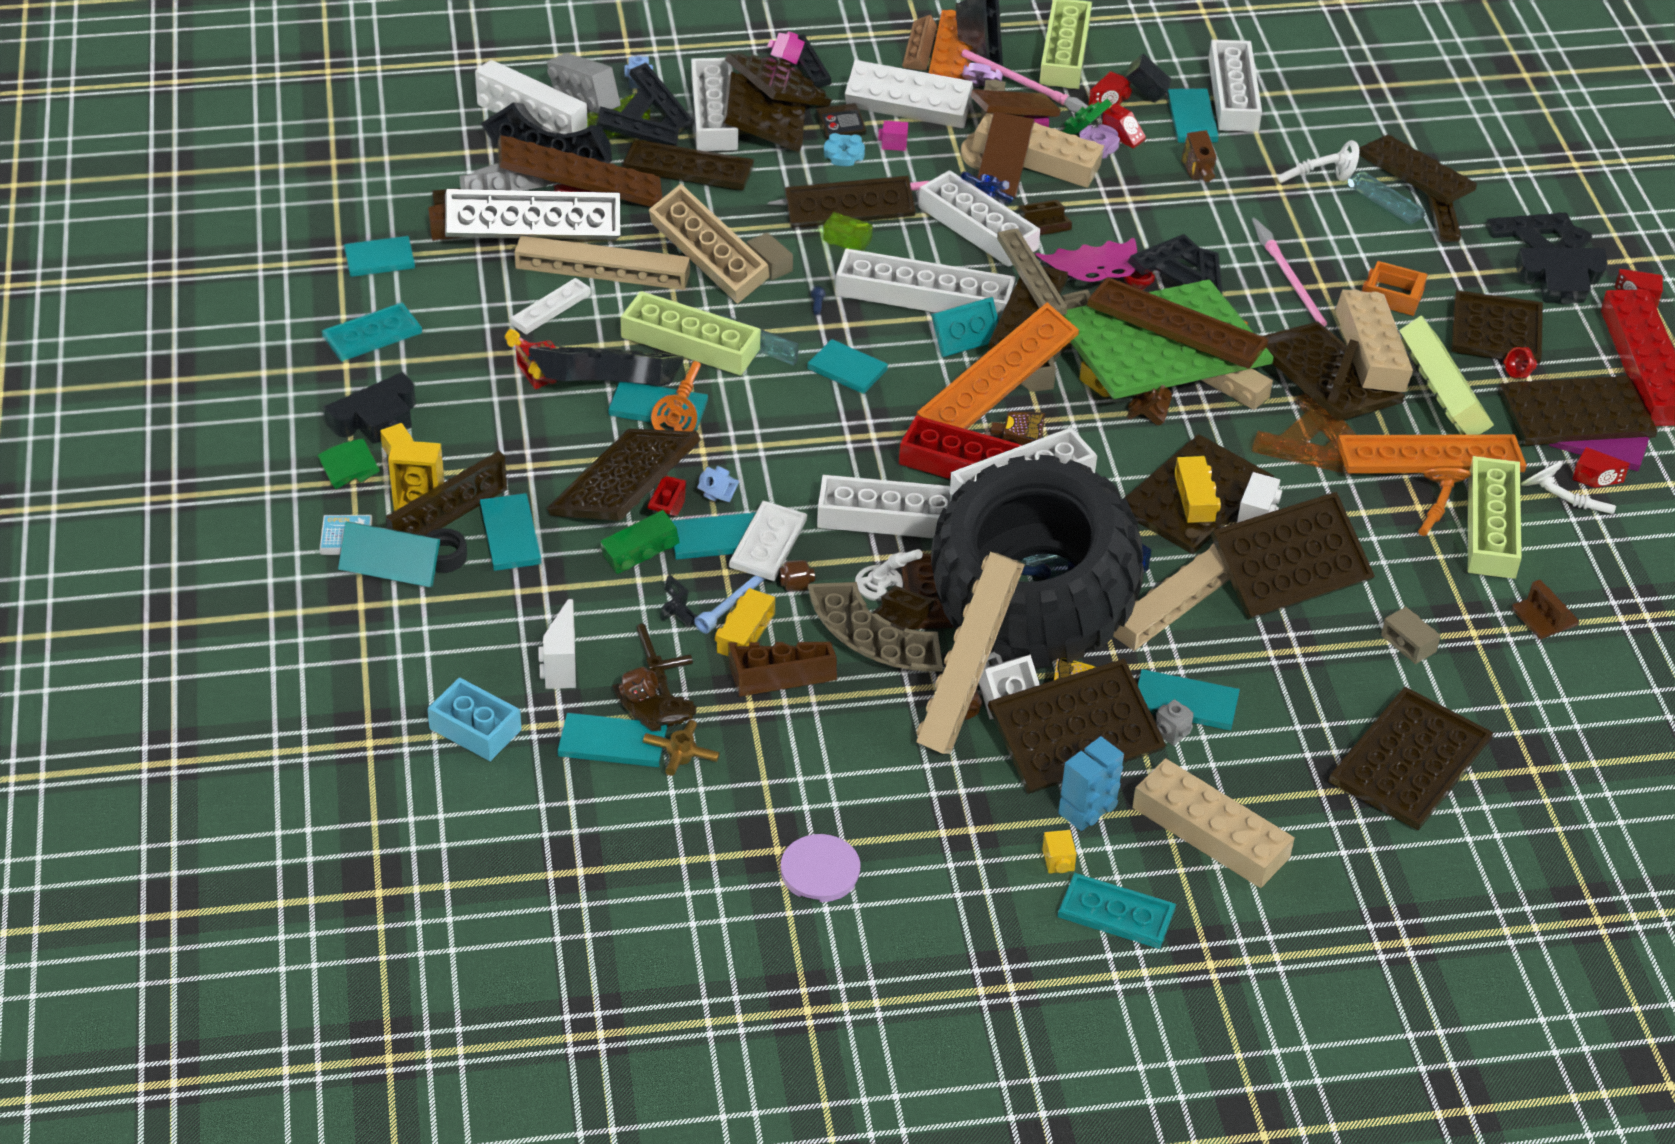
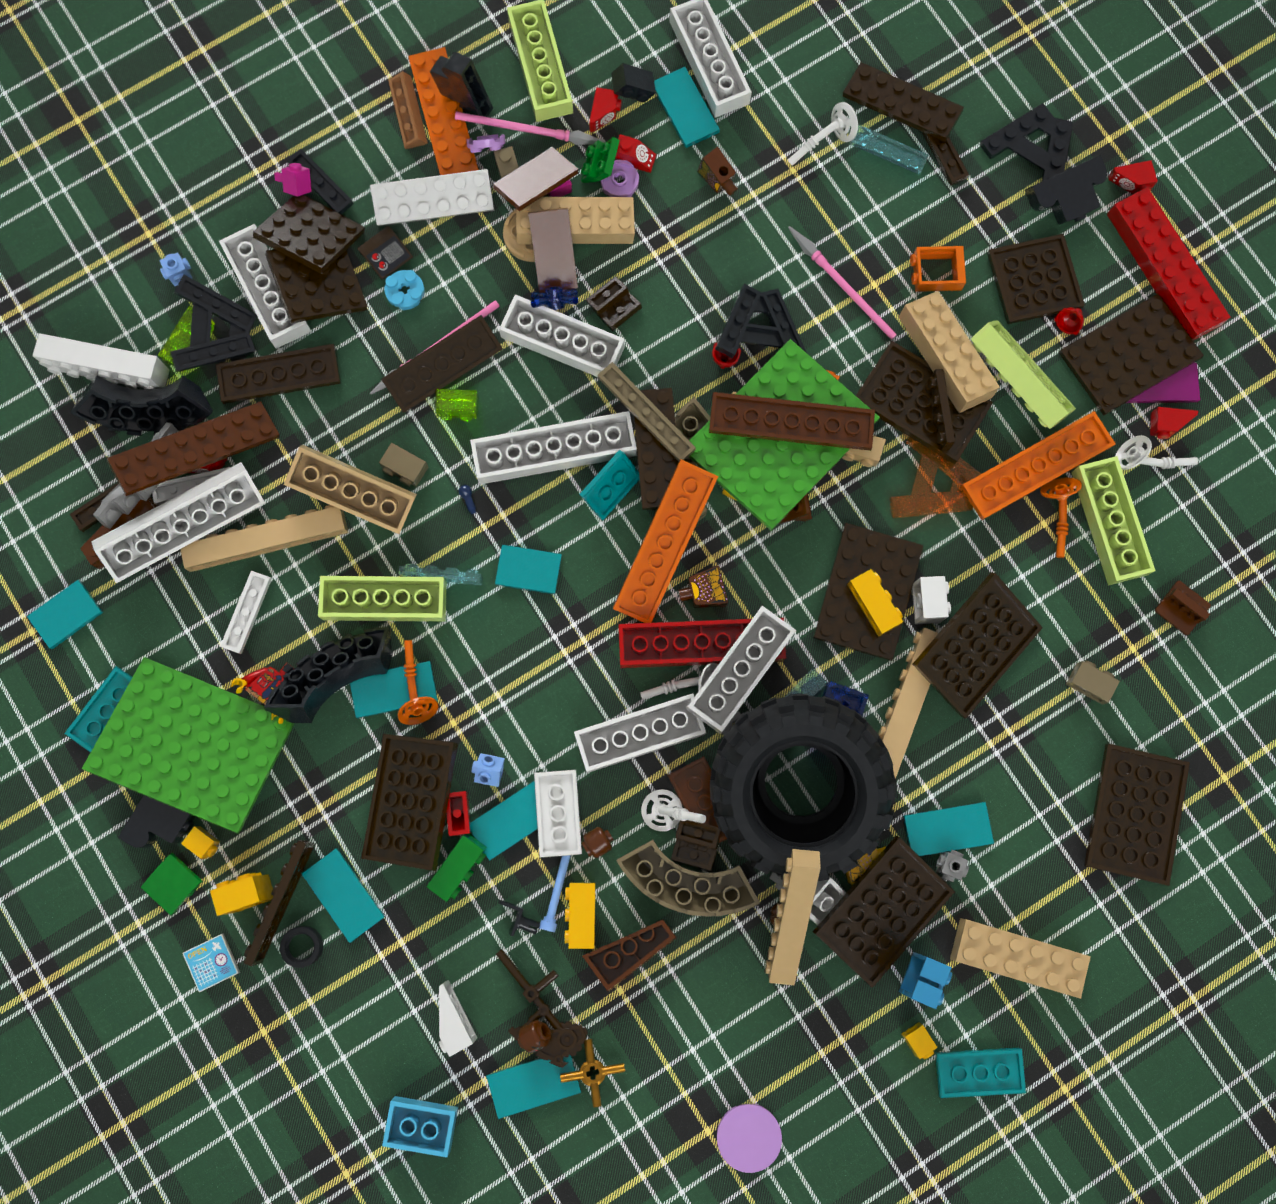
camera: 25 degrees left, 35 degrees up
(389, 554) = (261, 981): teal tile -> none
(437, 369) = (189, 745): none -> bright green plate
(584, 80) = (137, 322): light grey brick -> none
(894, 135) = (441, 254): dark pink brick -> none
(1088, 258) = (676, 343): dark pink piece -> none

